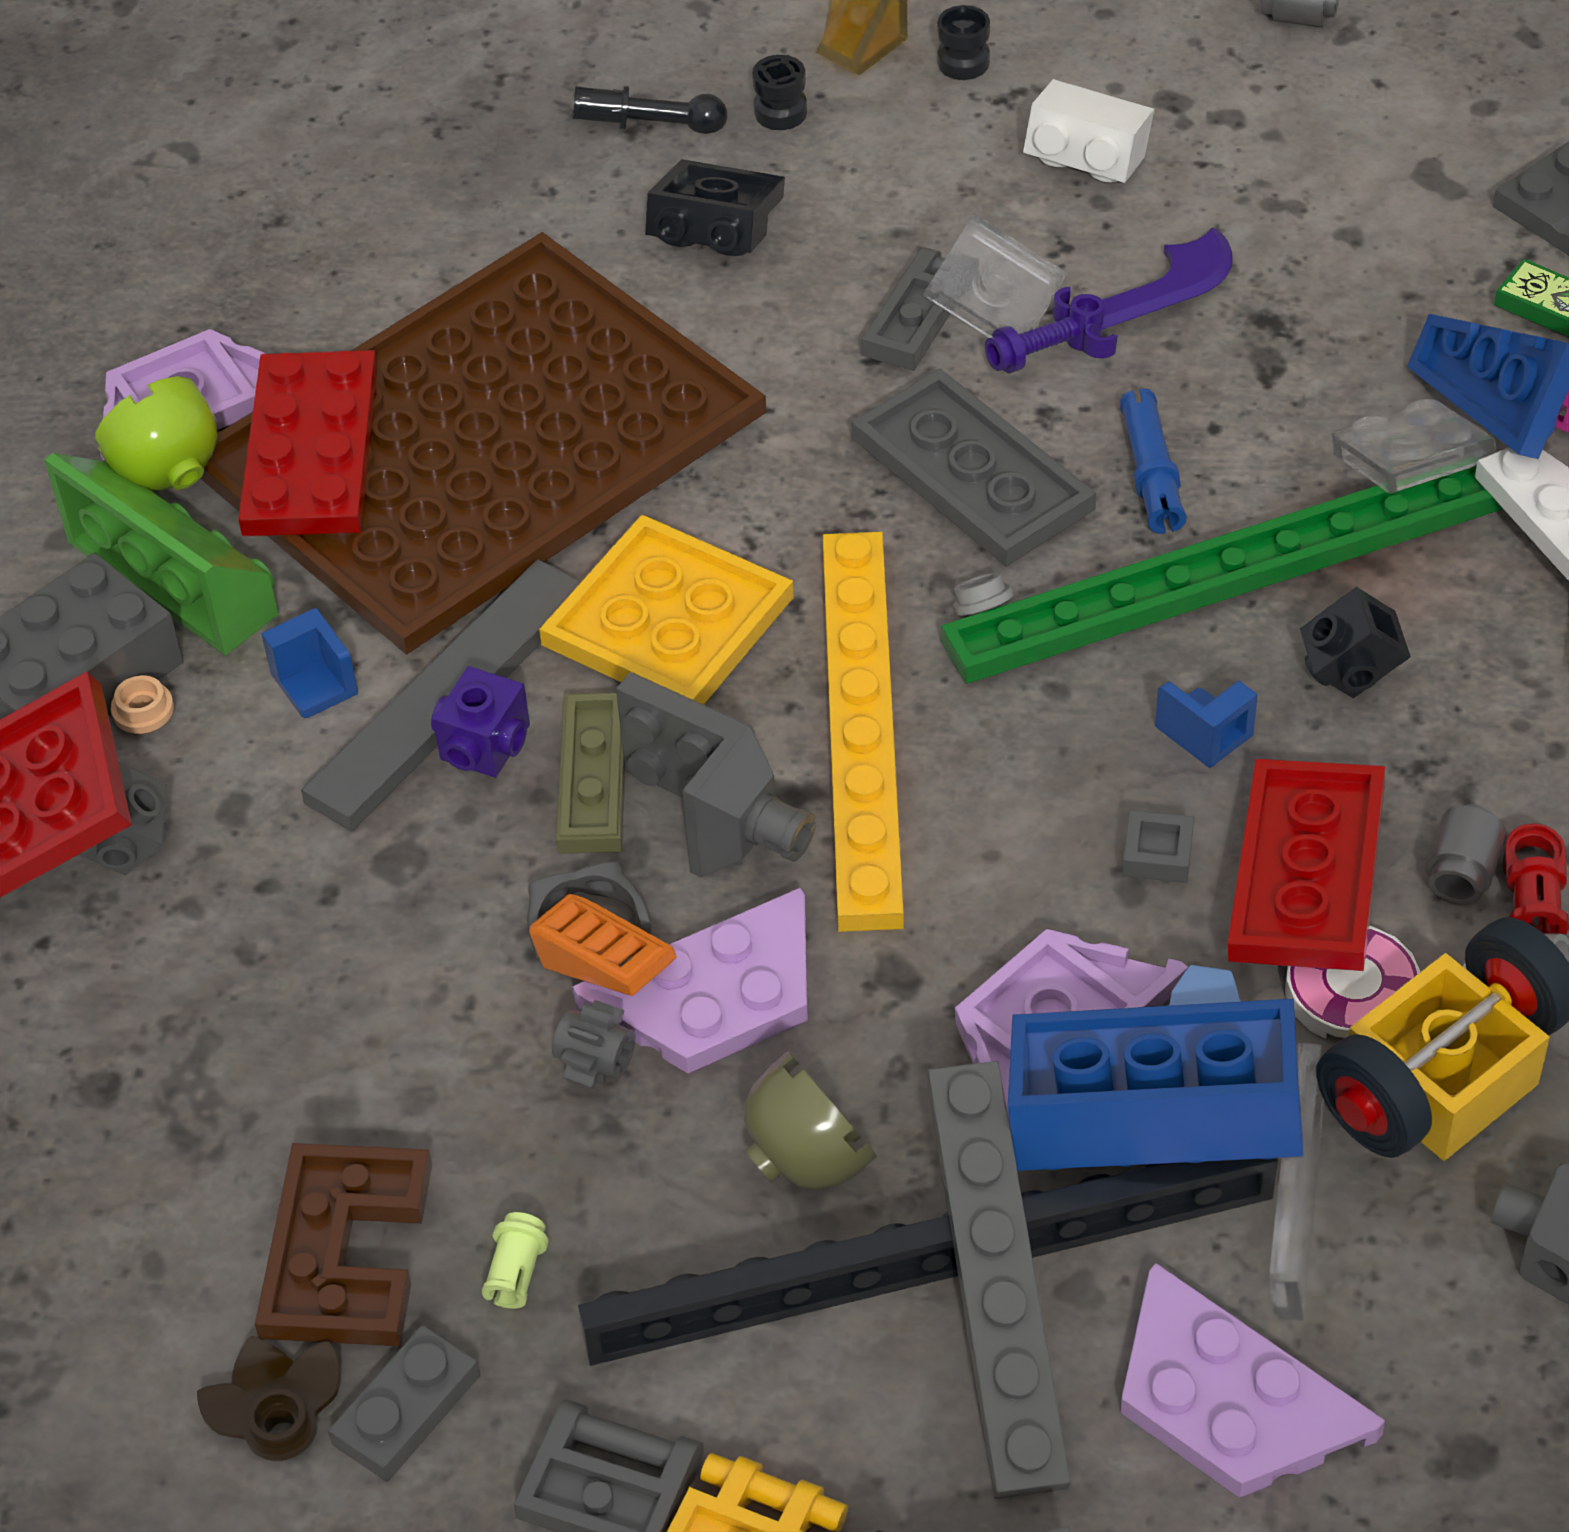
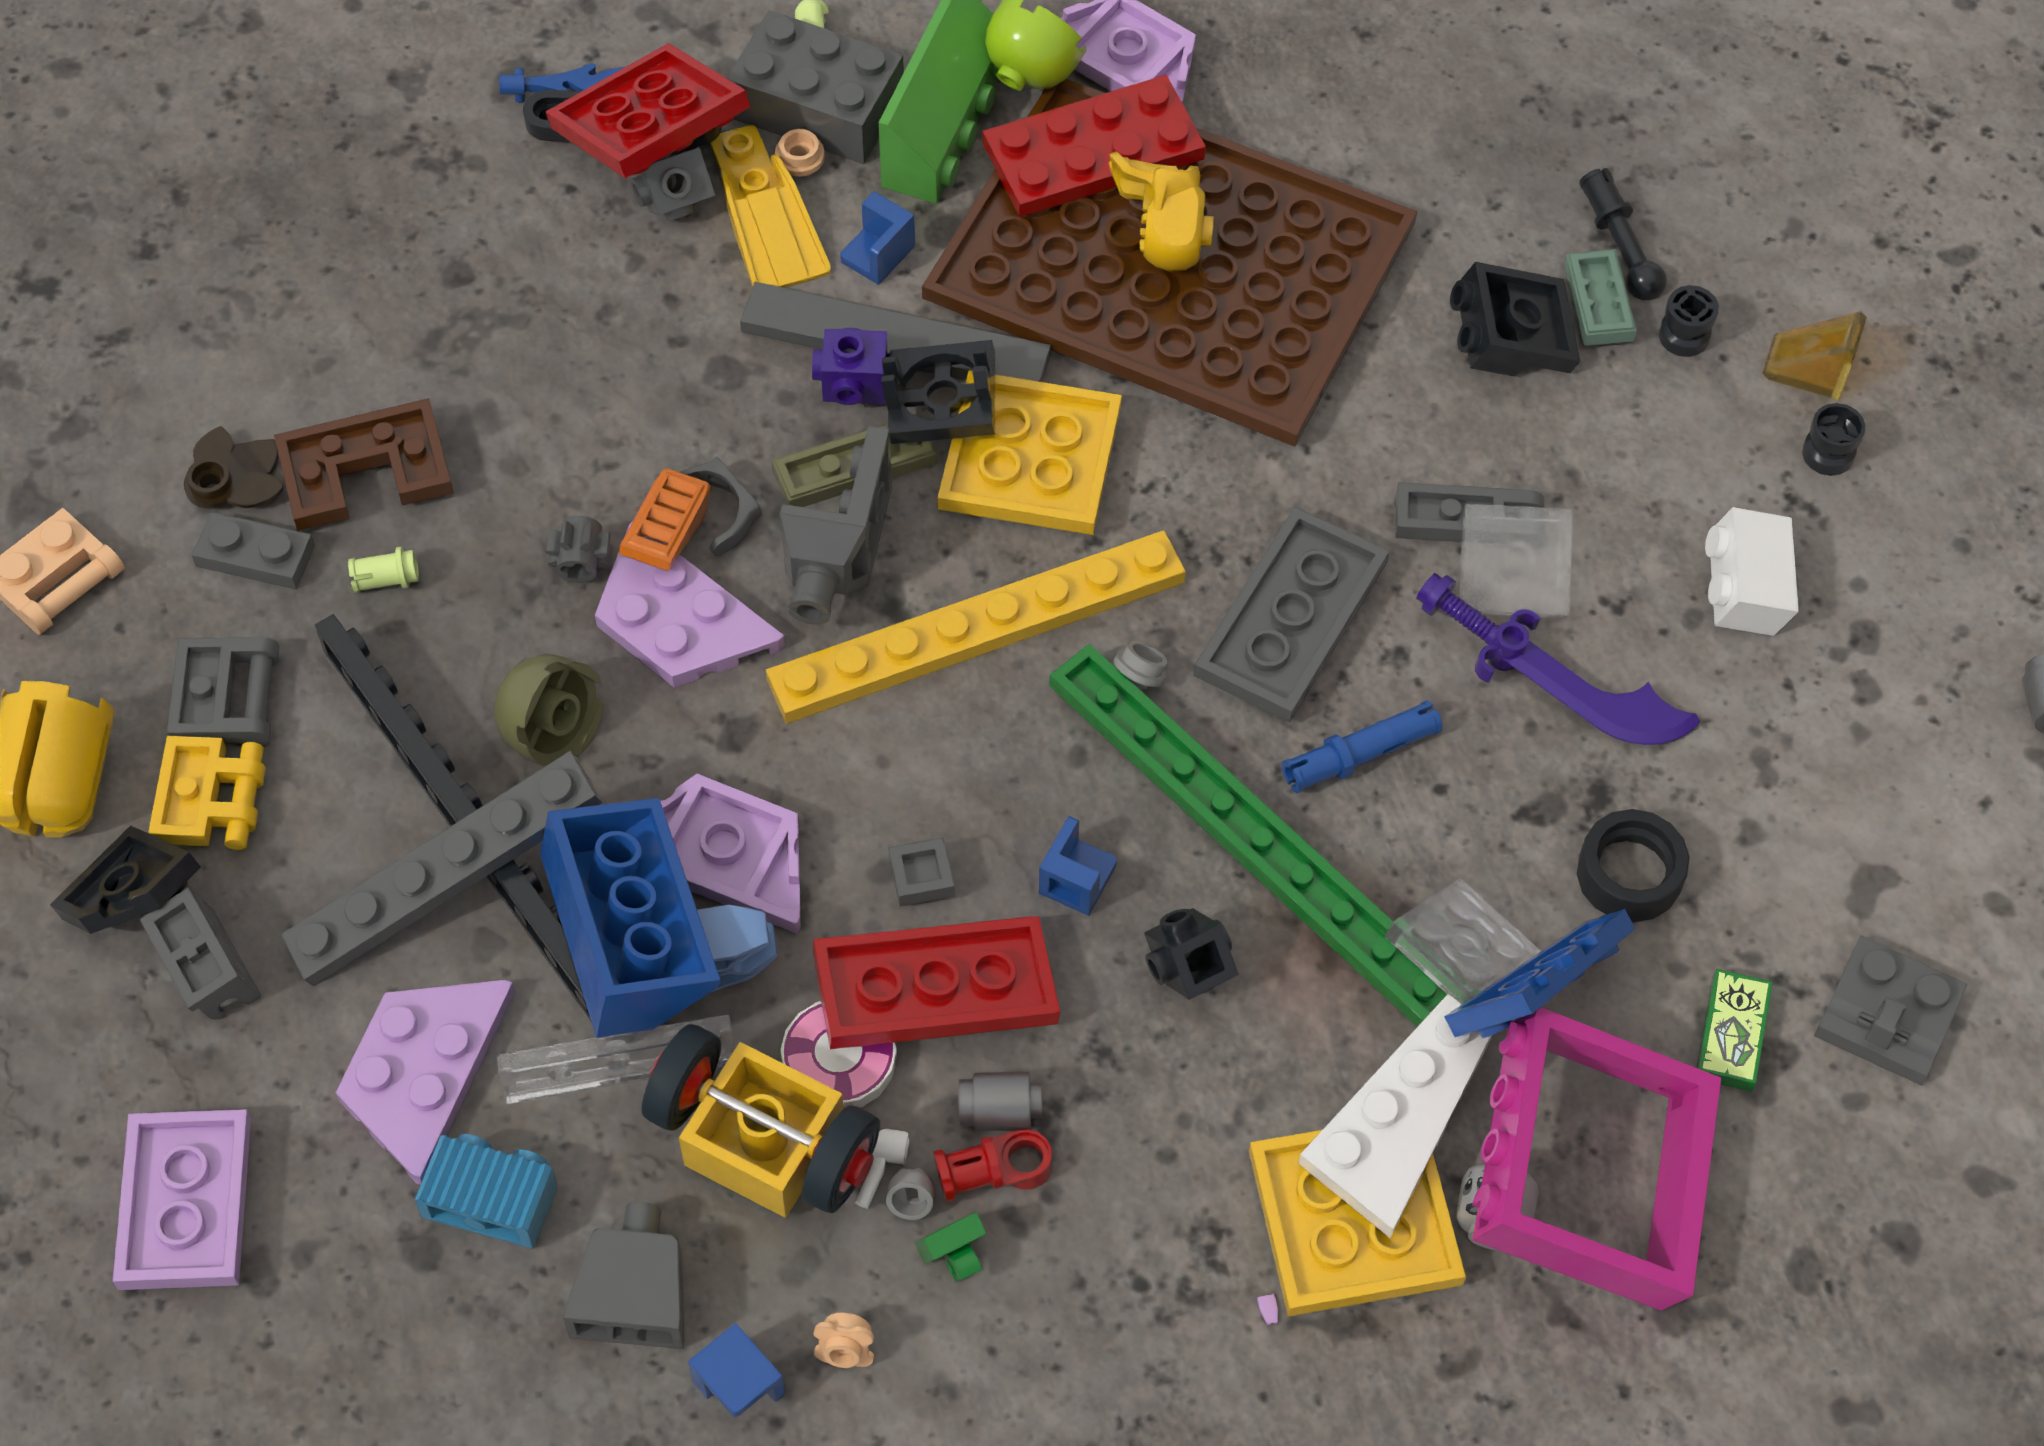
camera: 65 degrees right, 10 degrees up
(222, 758) = (767, 212): none -> yellow piece
(452, 390) = (1173, 209): none -> yellow head
(582, 607) = (974, 421): none -> black piece
(714, 142) = (1599, 297): none -> sand green plate
(1362, 340) = (1639, 828): none -> black tyre
(1427, 1351) = (487, 1190): none -> dark azure brick

